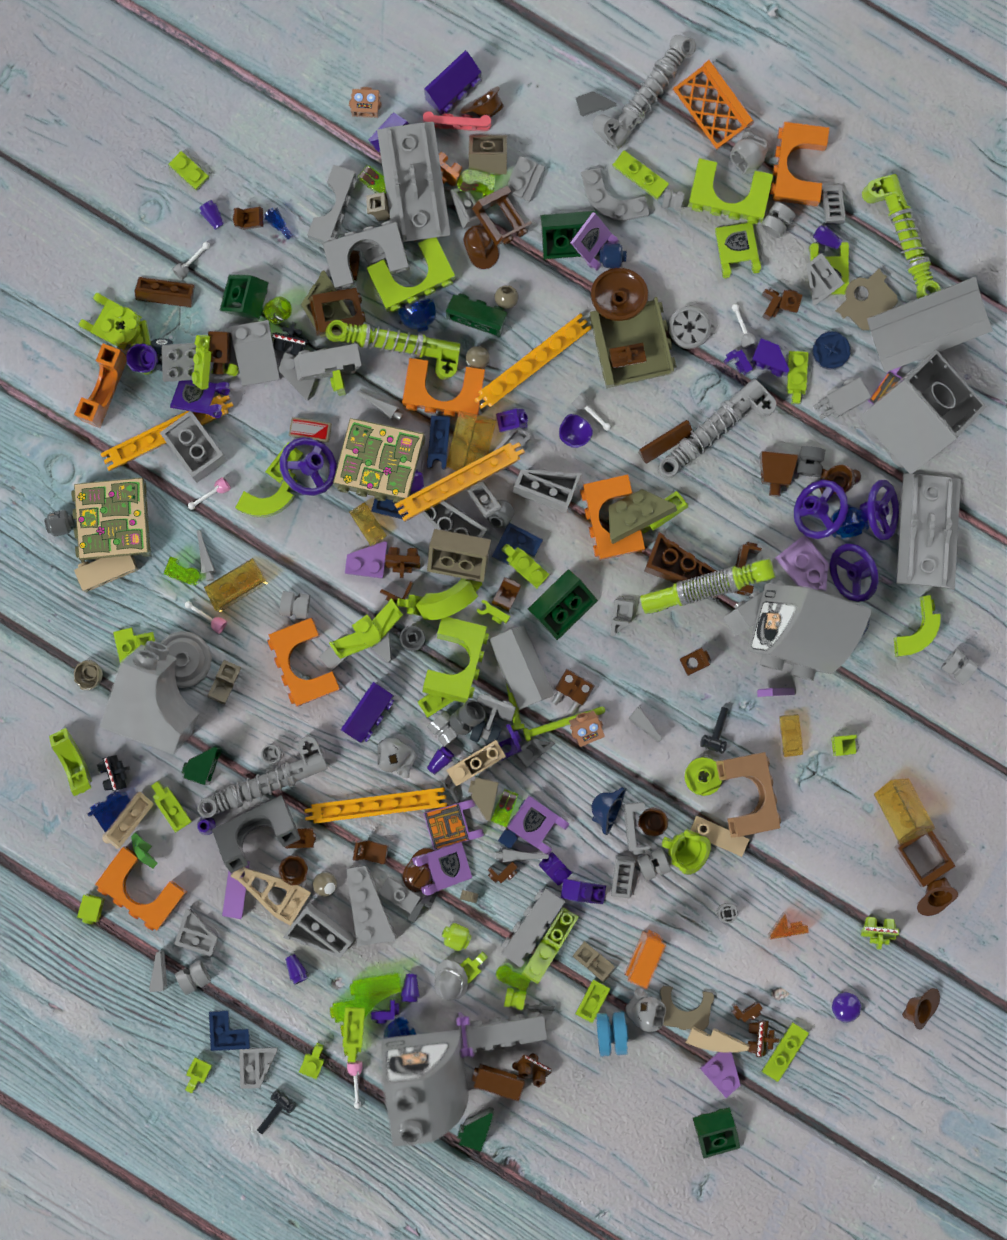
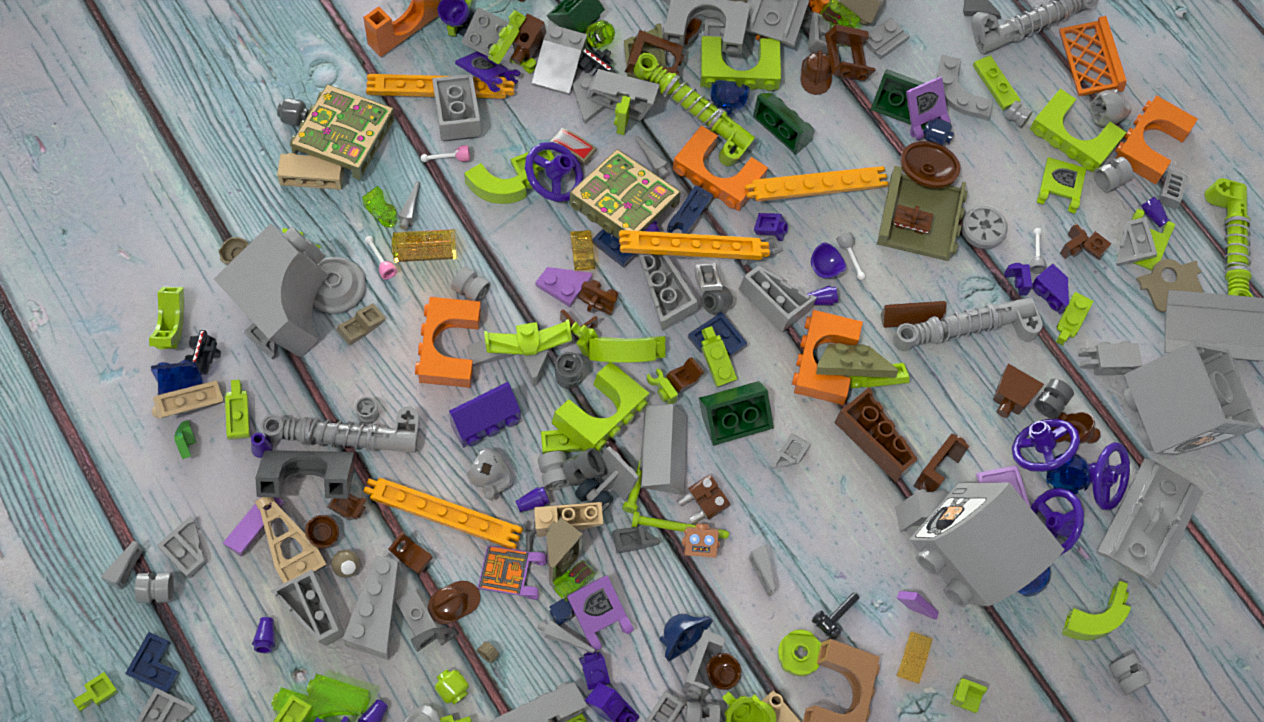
camera: 20 degrees right, 20 degrees down
(90, 908) = (96, 468): lime brick -> none
(114, 884) = (136, 454): orange arch -> none
(202, 767) = (293, 384): dark green slope -> none
(446, 866) = (481, 609): medium lavender flag -> none
(458, 555) = (656, 309): dark tan slope -> none
(470, 439) = (725, 217): clear yellow slope -> none
(477, 357) = (767, 155): dark tan piece -> none
(506, 297) = (820, 120): dark tan piece -> none
(508, 873) = (540, 647): reddish brown bracket -> none
(512, 741) = (617, 520): dark purple bracket -> none
(586, 463) = (825, 296): none -> dark purple cone
(702, 658) = (855, 533): reddish brown bracket -> none
(710, 585) = (866, 450): lime piece -> none
(831, 350) = (1117, 312): dark blue tile -> none

